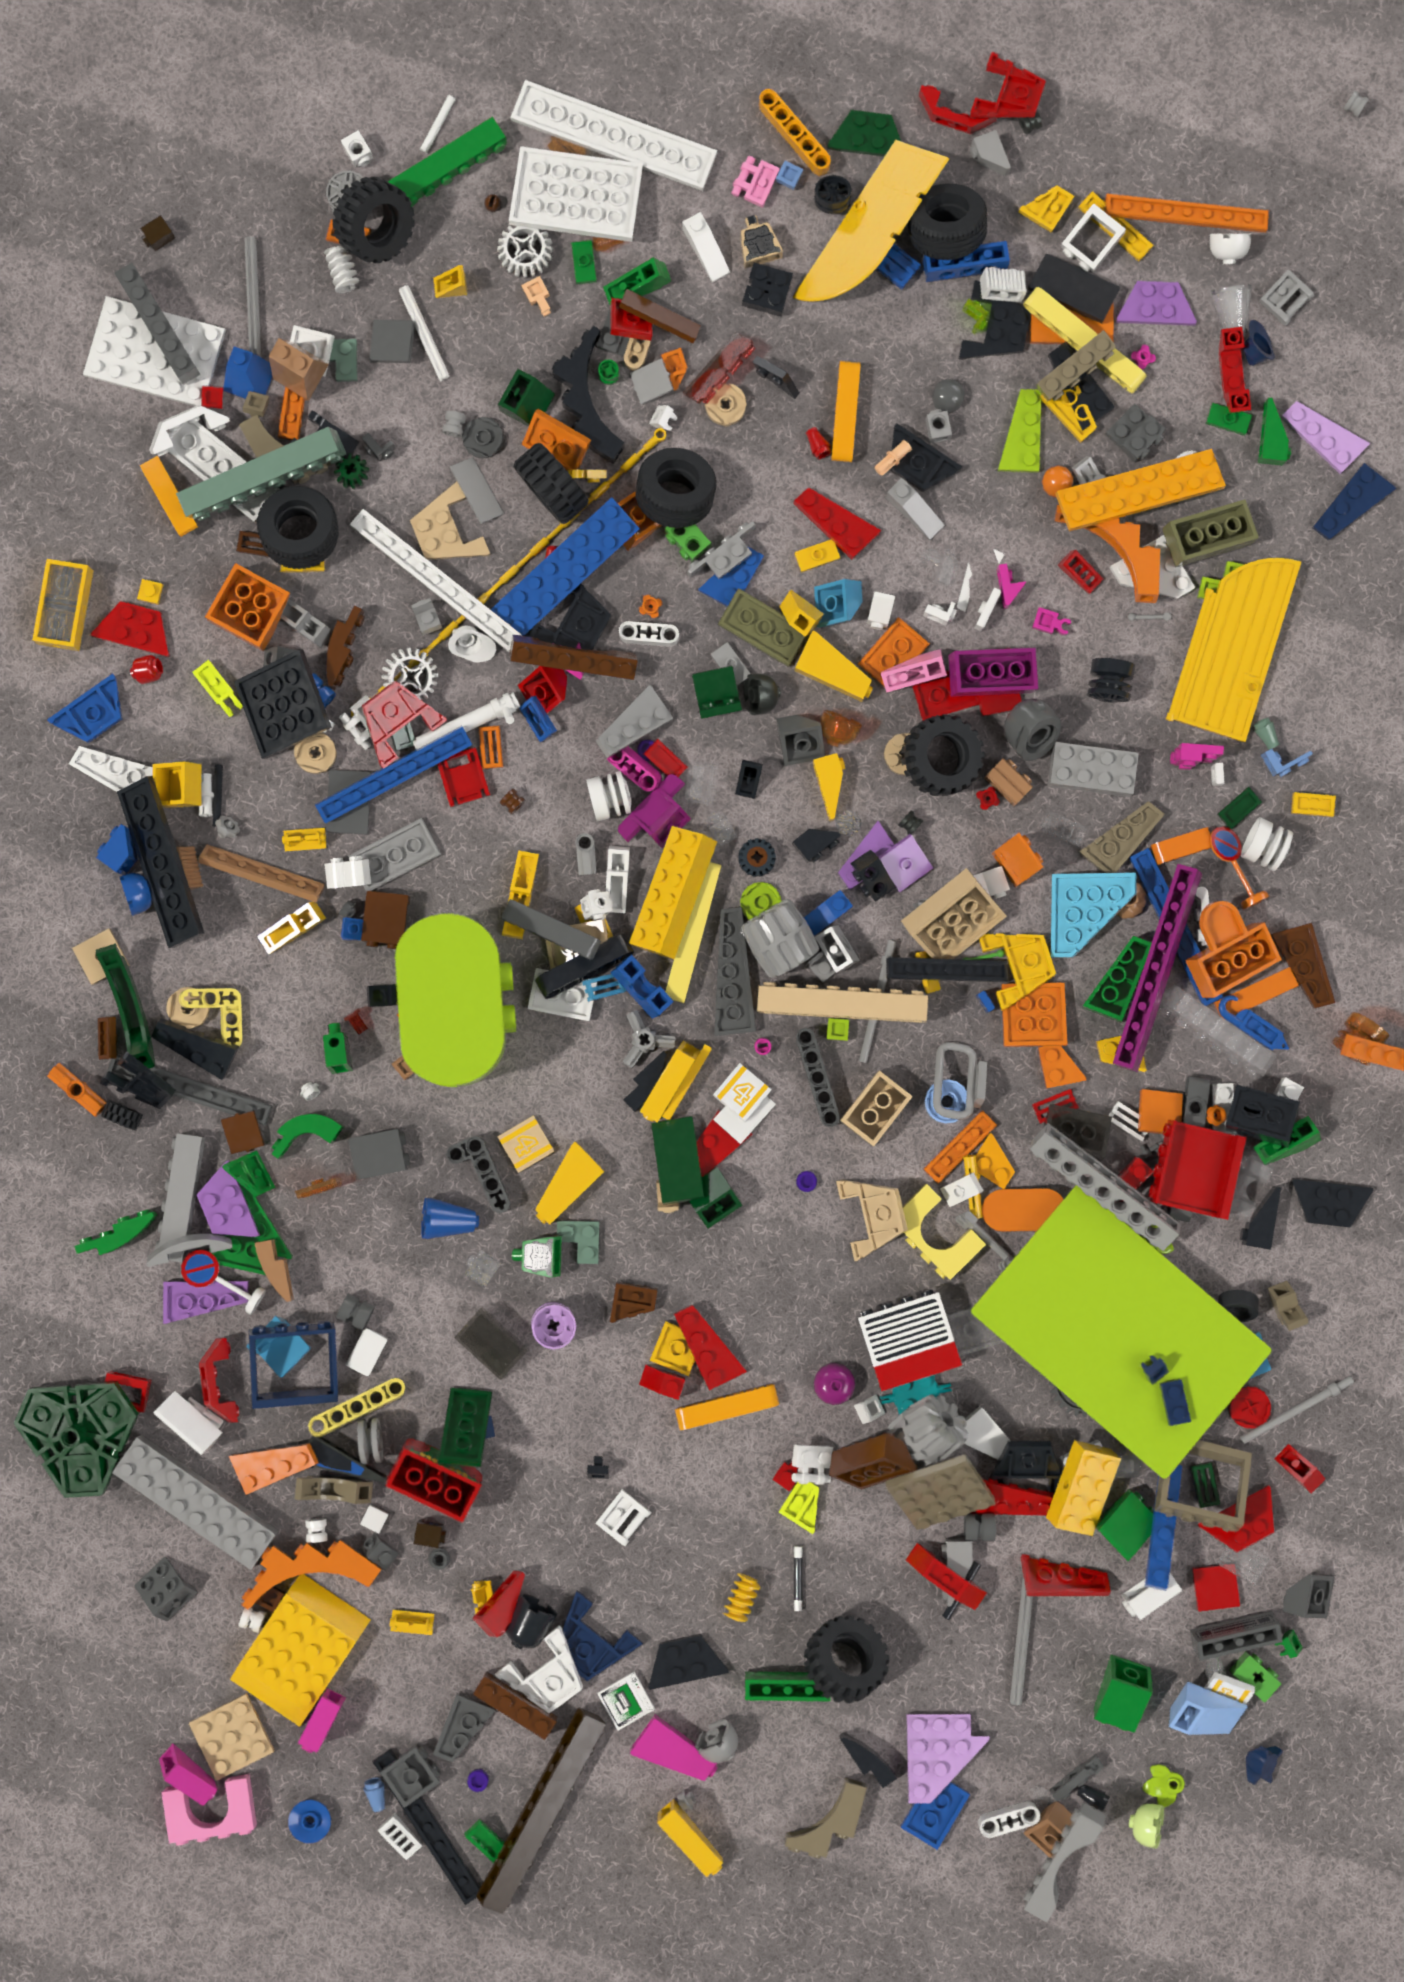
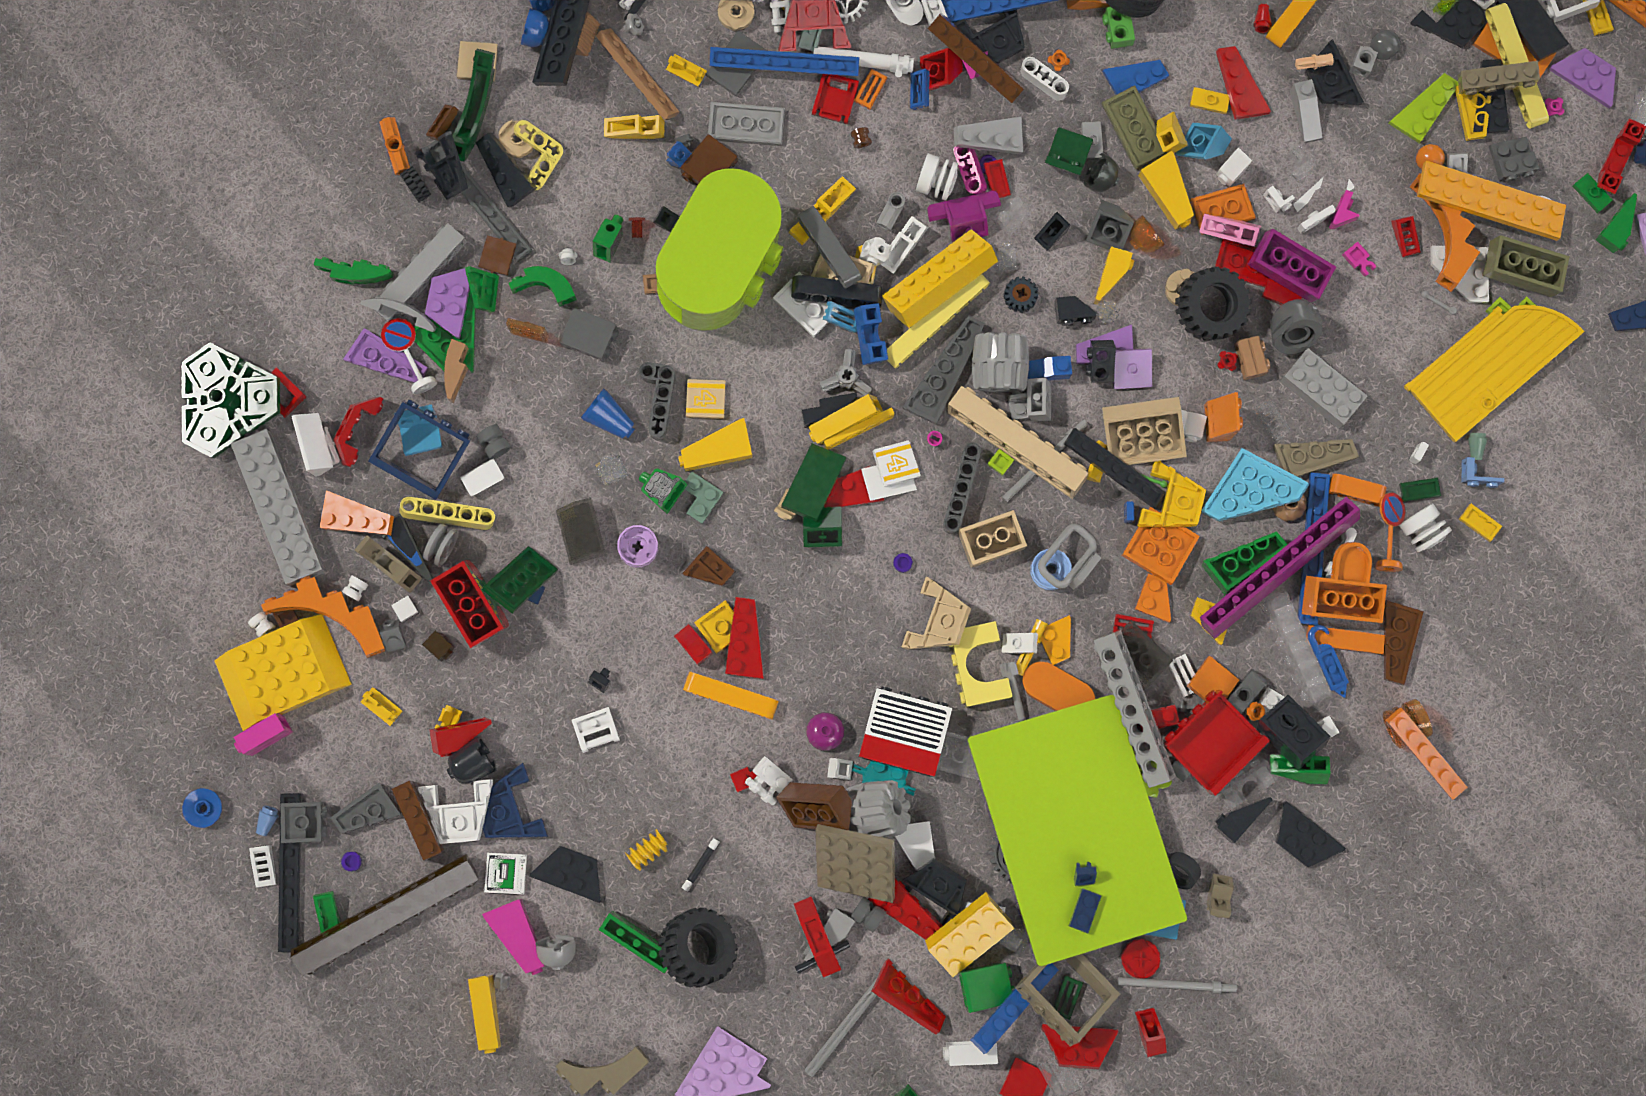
camera: 30 degrees right, 5 degrees down
(164, 1590) = (210, 561): dark grey bracket -> none
(184, 1826) = (105, 749): bright pink arch -> none
(186, 1775) = (133, 712): dark pink slope -> none
(231, 1736) = (186, 705): tan plate -> none
(347, 873) = (702, 113): white brick -> none
(439, 1565) = (428, 668): dark grey plate -> none
(726, 556) = (1140, 56): light grey bracket -> none
(765, 897) = (1002, 322): lime tile -> none
(802, 1505) = (740, 808): neon yellow wing -> none
(868, 1760) = (664, 1041): black slope -> none
(910, 822) = (1156, 341): pearl dark grey wheel -> none
(959, 1146) = (1040, 610): orange tile -> none
(1110, 684) = (1380, 328): black wheel -> none
(1190, 755) = (1407, 422): dark pink plate -> none

